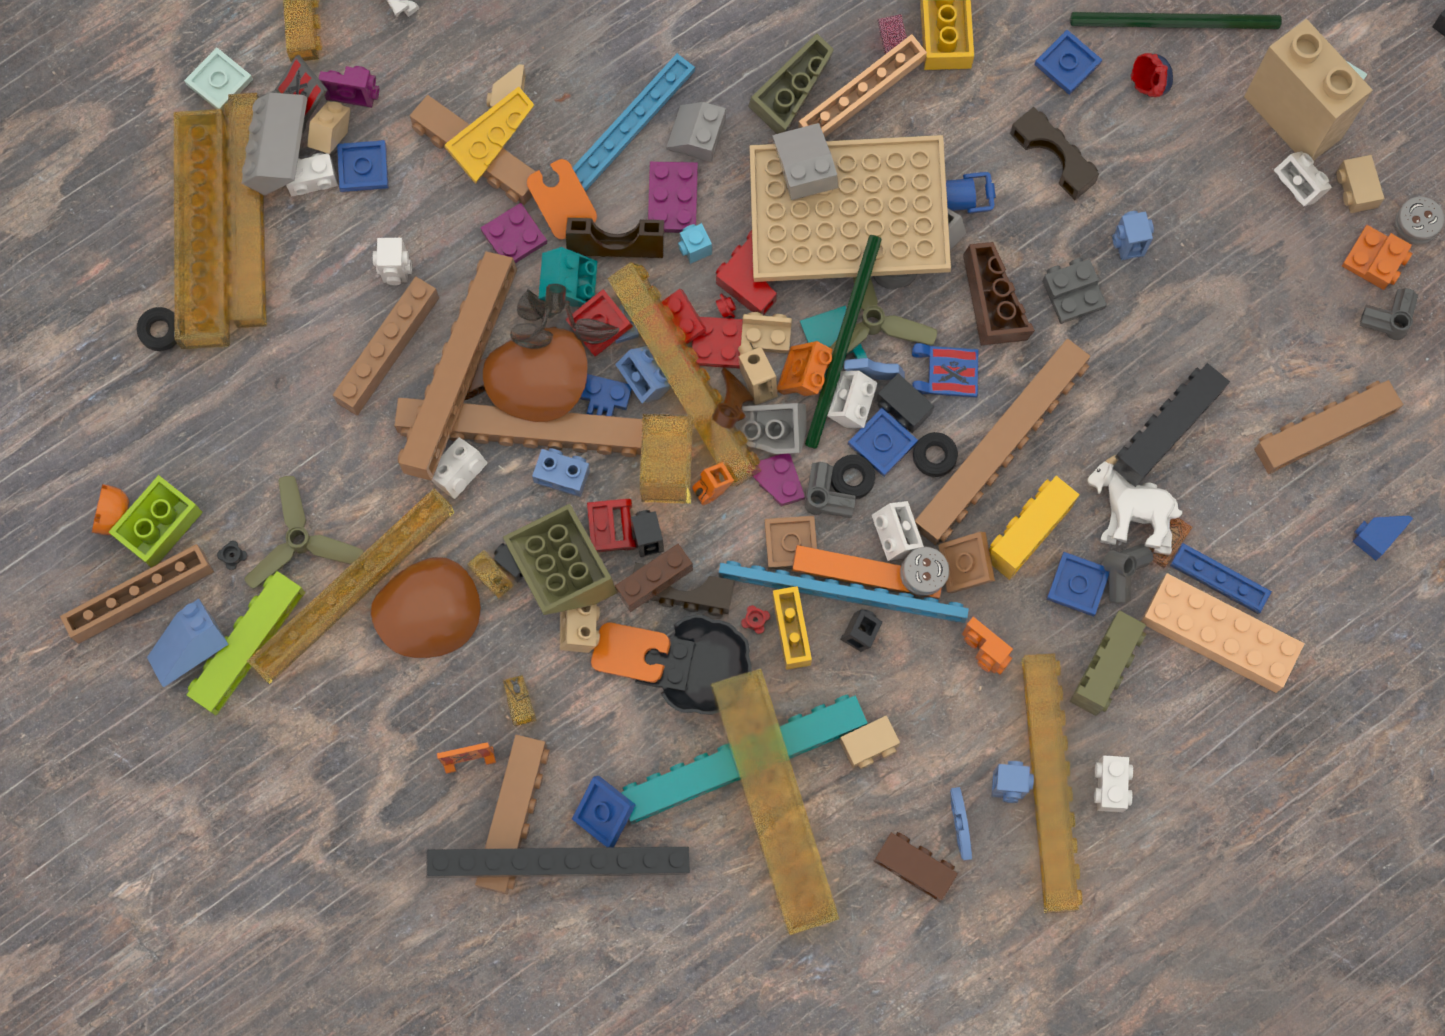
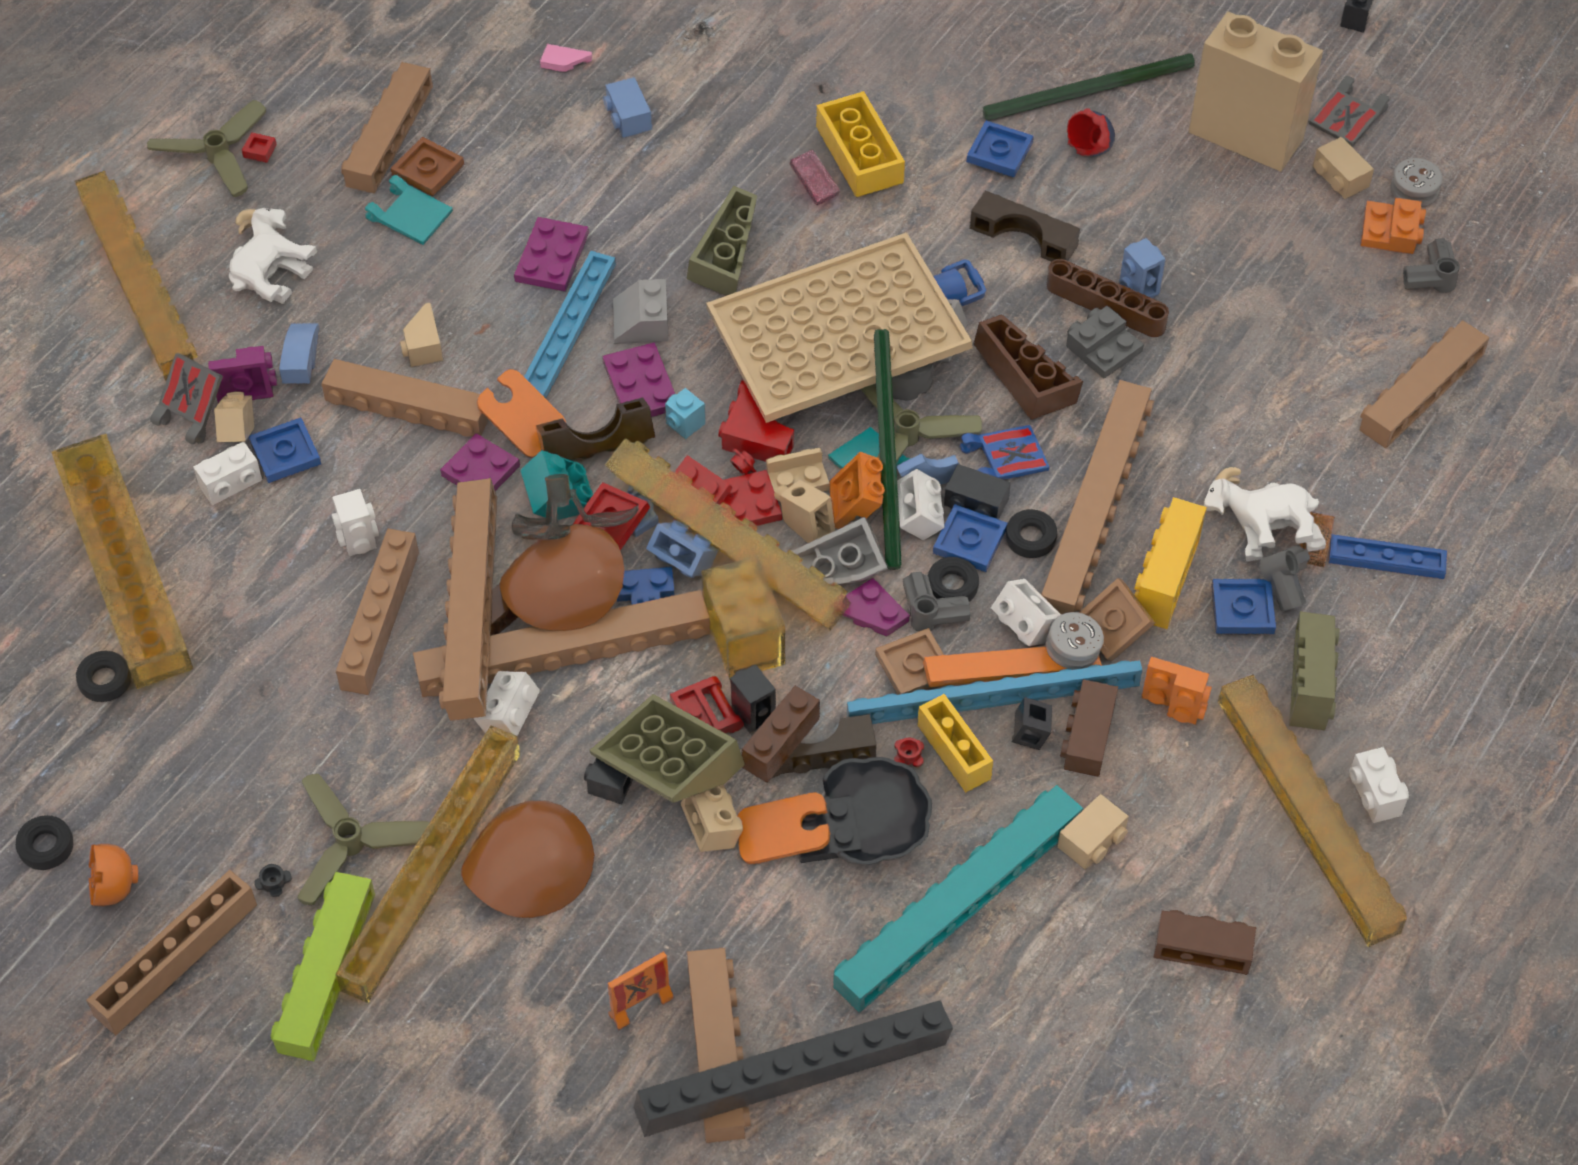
camera: 20 degrees left, 20 degrees down
(62, 451) = (52, 857): none -> black tyre
(155, 521) = (170, 867): lime slope -> none
(186, 643) = (252, 981): medium blue slope -> none
(217, 78) = (89, 414): light aqua plate -> none
(245, 222) = (167, 530): clear yellow brick -> none
(274, 141) = (178, 445): light grey slope -> none
(404, 73) = (299, 353): none -> medium blue slope
(486, 136) = (416, 374): yellow wing -> none
(490, 574) = (588, 800): clear yellow leg -> none
(519, 701) = (675, 922): clear yellow leg -> none
(561, 472) = (628, 672): medium blue brick -> none
(603, 811) = (823, 998): blue plate -> none
(645, 42) = (551, 254): none -> magenta plate
(710, 486) = (804, 630): orange leg -> none
(731, 410) = (791, 541): reddish brown piece -> none
(774, 802) = (1019, 917): clear yellow brick -> none
(806, 161) = (776, 295): light grey slope -> none
(866, 86) = (803, 222): light nougat brick -> none
(905, 650) = (1089, 727): none -> reddish brown brick
(961, 823) = (1234, 877): medium blue tile -> none
(1012, 781) = (1268, 814): medium blue brick -> none
(1093, 237) = (1096, 291): none -> reddish brown beam
(1170, 425) = (1265, 424): black brick -> none
(1222, 633) = (1418, 602): light nougat brick -> none
(1303, 178) = (1278, 174): white brick -> none
(1379, 534) = (1528, 462): blue slope -> none
(1391, 127) = (1346, 115): none -> dark grey flag

